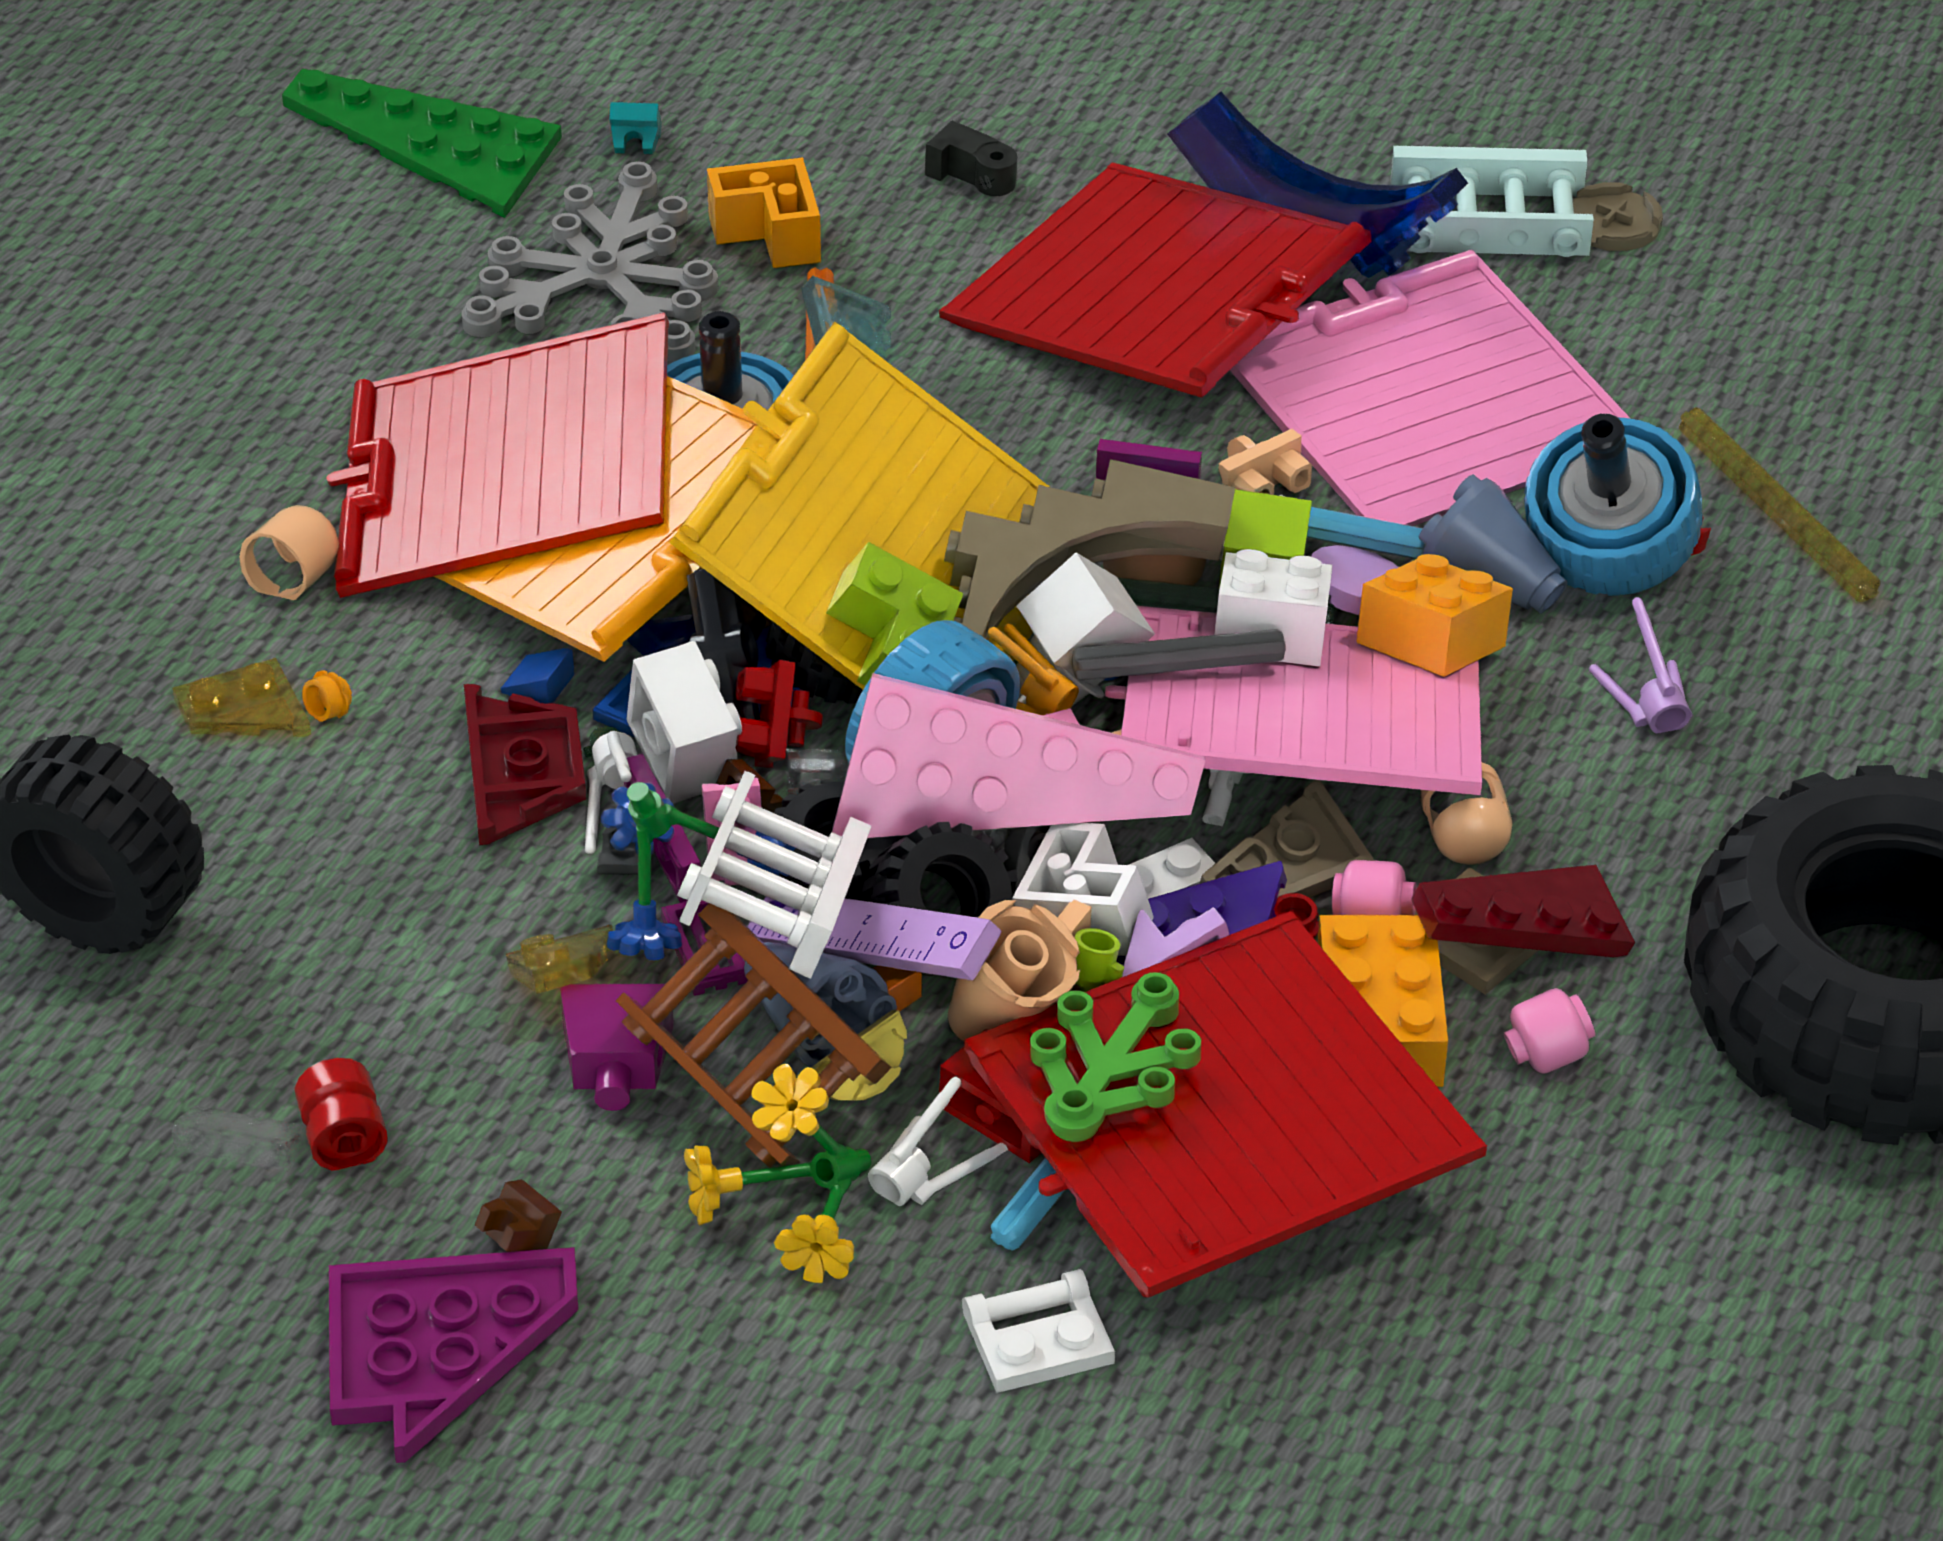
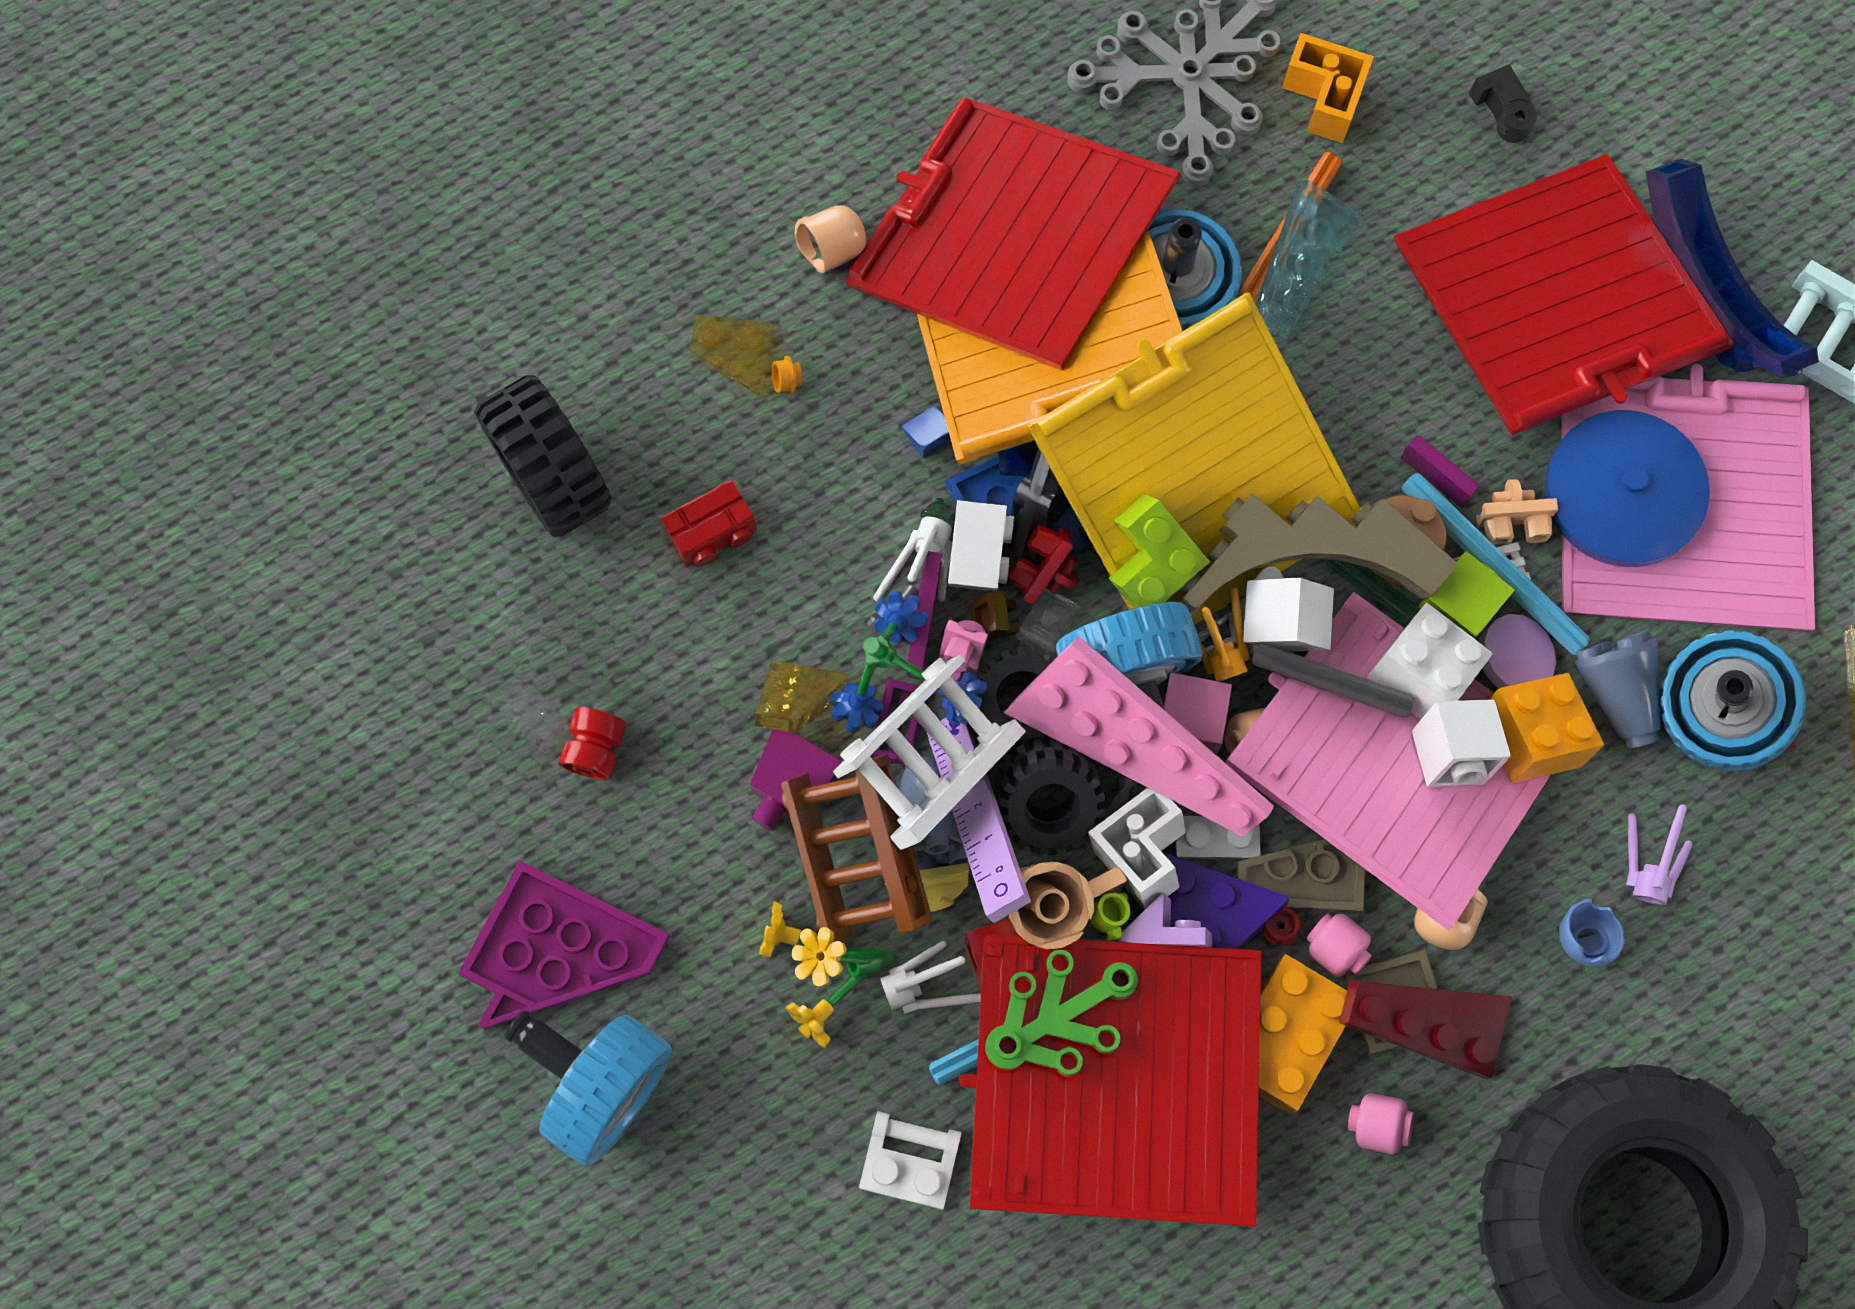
camera: 30 degrees right, 30 degrees up
(334, 859) = (709, 524): none -> red brick
(519, 1218) = (650, 894): reddish brown tile -> none
(521, 761) = (873, 501): dark red wing -> none
(604, 1392) = (598, 1086): none -> dark azure wheel
(1360, 401) = (1627, 488): none -> blue dish
(1360, 642) = (1460, 743): none -> white head
(1633, 772) = (1594, 949): none -> medium blue hair

